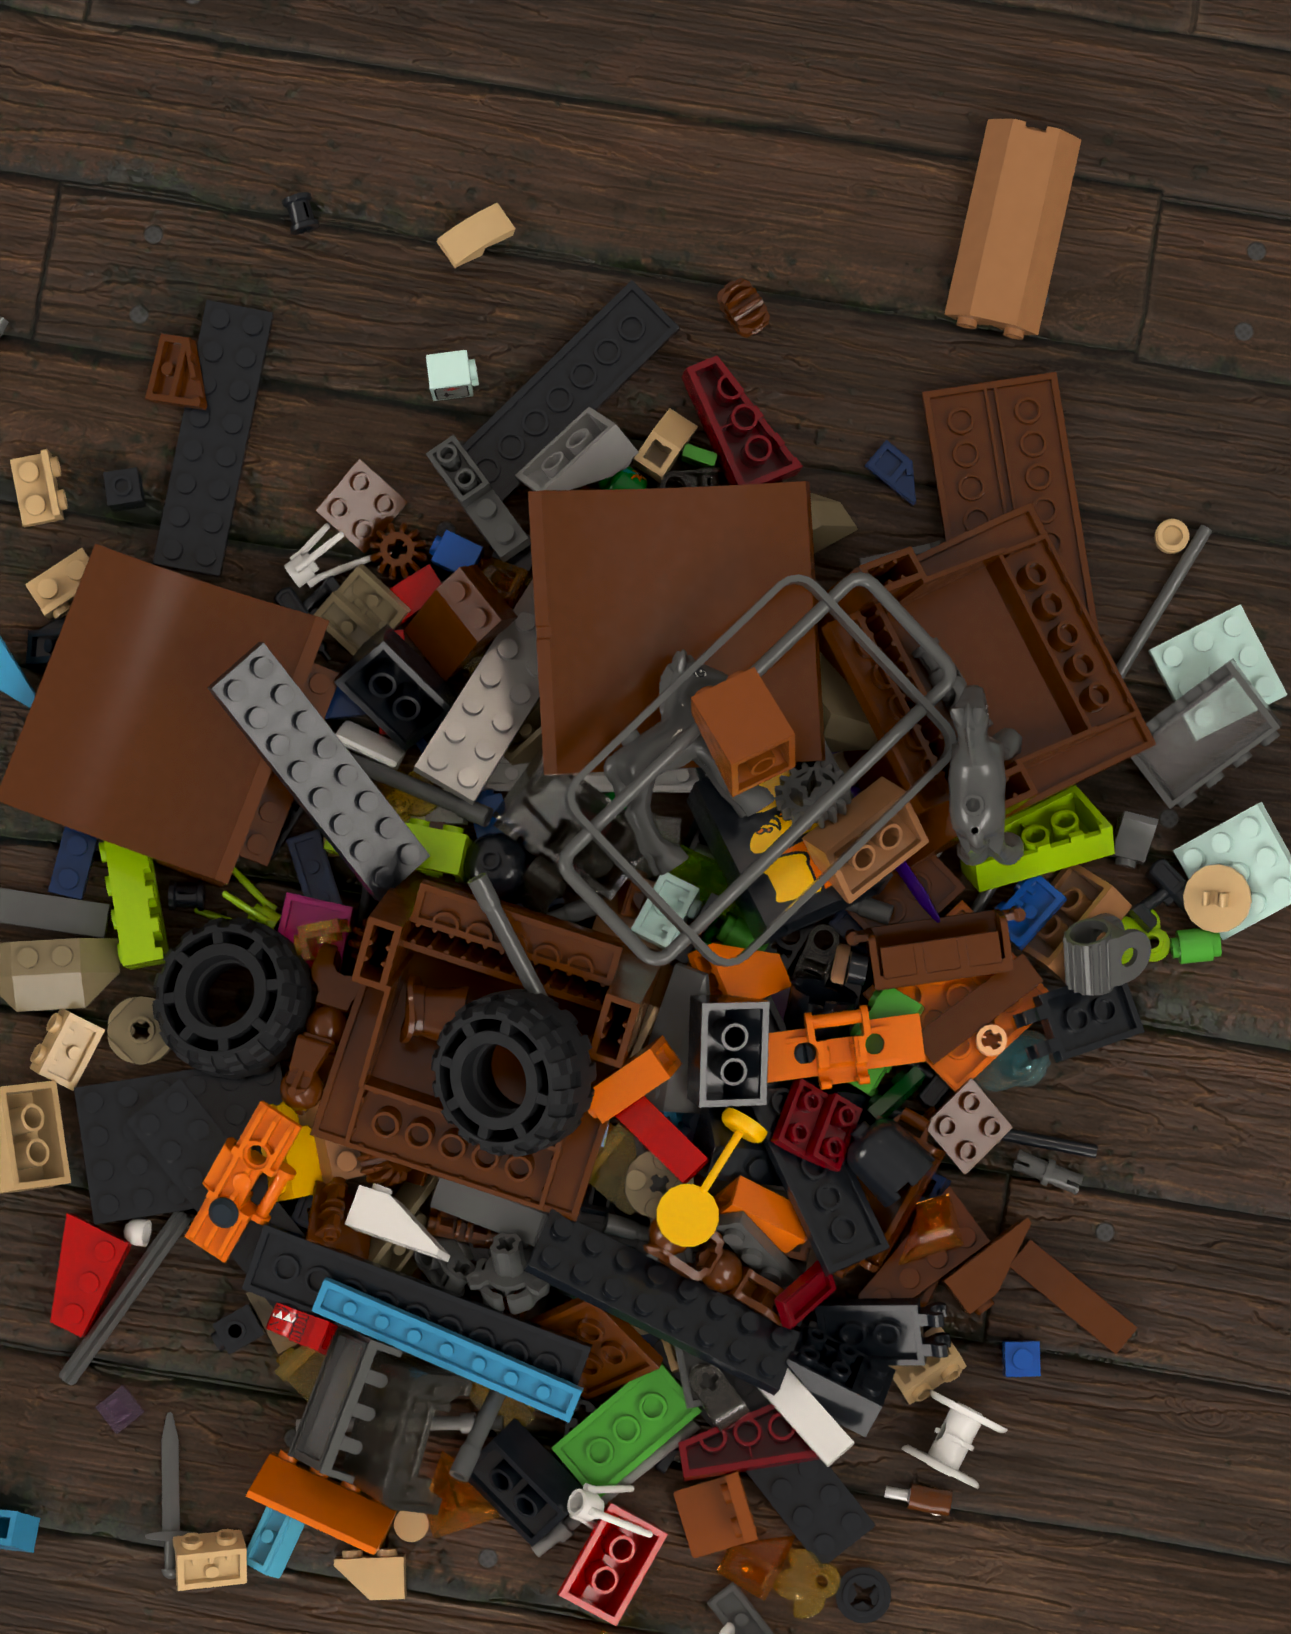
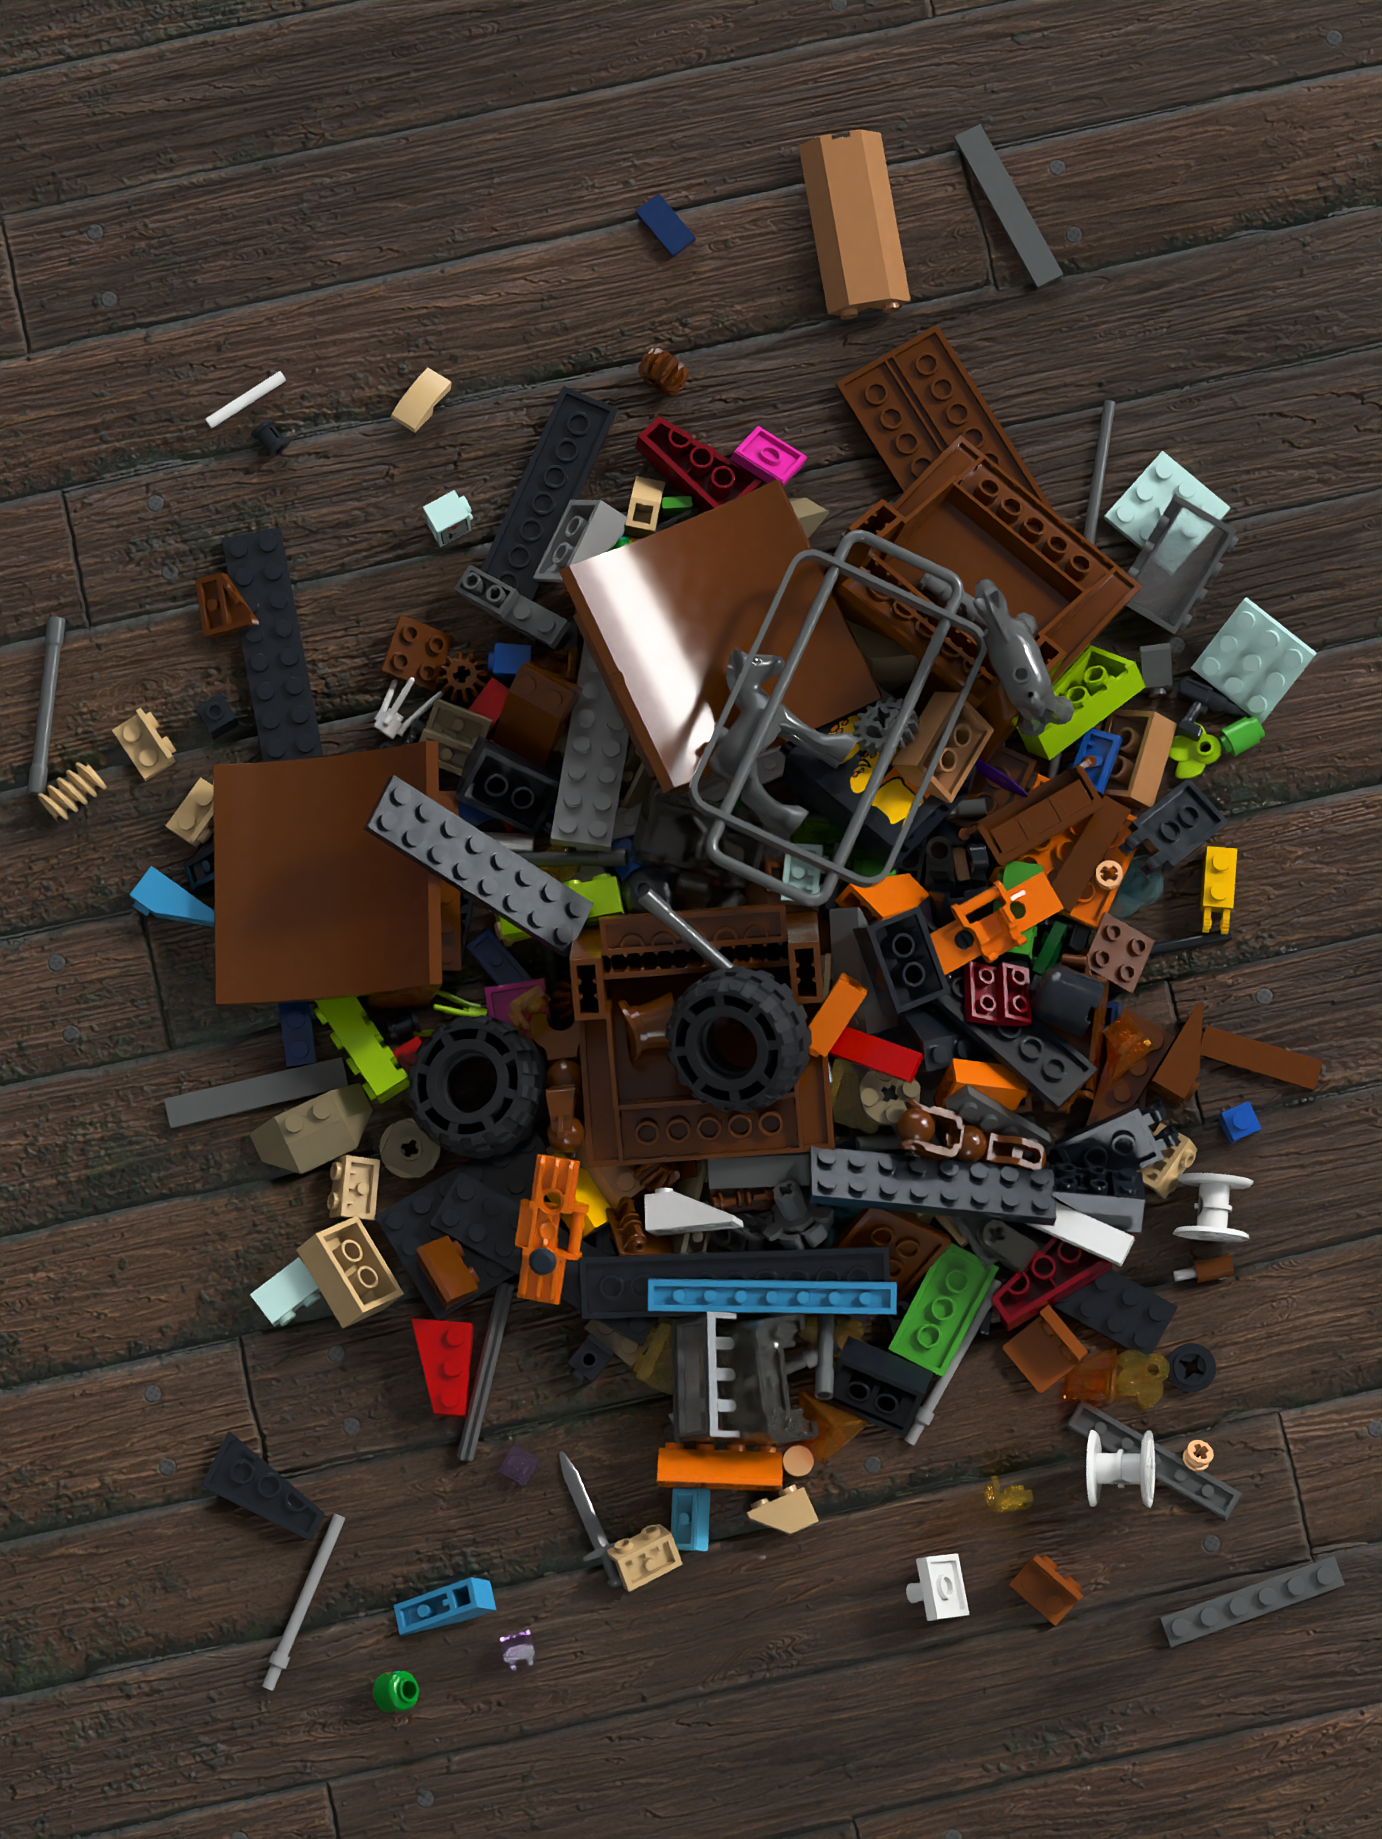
camera: 25 degrees left, 5 degrees down
(39, 1600) = (517, 1647): none -> clear purple tile
(122, 1180) = (447, 1271): none -> reddish brown slope
(138, 1232) = (474, 1313): white hinge -> none
(179, 926) = (406, 1053): none -> red plate
(292, 160) = (245, 399): none -> white bar
(302, 1328) = (644, 1331): red leg -> none
(587, 1505) = (937, 1378): white plant -> none
(612, 1565) = (977, 1421): red slope -> none
(689, 1212) = (923, 1101): yellow piece -> none
(744, 730) = (813, 688): dark orange slope -> none
(804, 1295) = (1044, 1136): dark red tile -> none
(812, 149) = (665, 225): none -> dark blue tile
(817, 445) = (768, 457): none -> dark pink tile
(894, 471) = (839, 455): dark blue tile -> none
(1047, 1172) = (1197, 965): dark grey pin -> none
(1097, 966) = (1168, 778): dark grey piece -> none
(1103, 1097) = (1218, 885): none -> yellow hinge
(1171, 536) = (1084, 419): tan tile -> none
(1186, 273) = (1008, 207): none -> dark grey tile
(1217, 898) = (1243, 689): tan piece -> none

